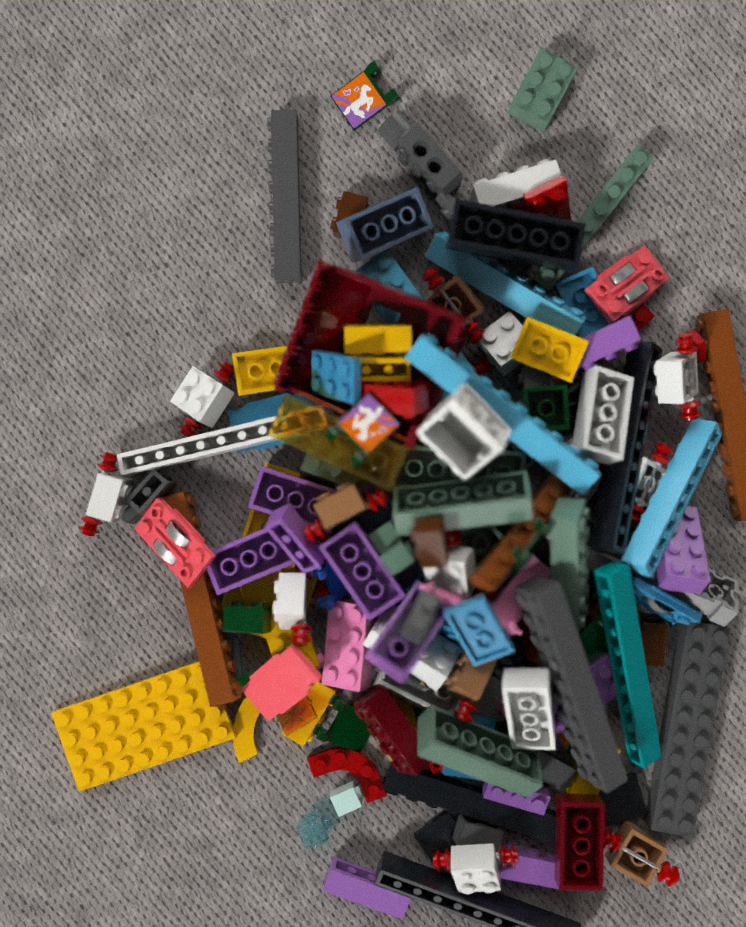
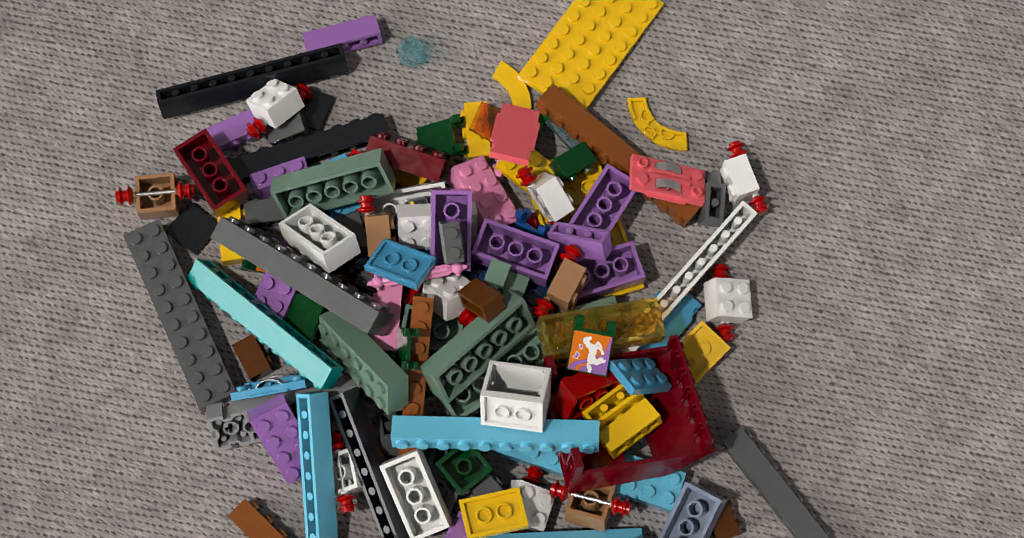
camera: 140 degrees right, 15 degrees down
(151, 601) = (652, 129): none -> yellow tile
(346, 798) = (403, 89): light aqua brick -> none
(354, 762) = (415, 118): red plate -> none

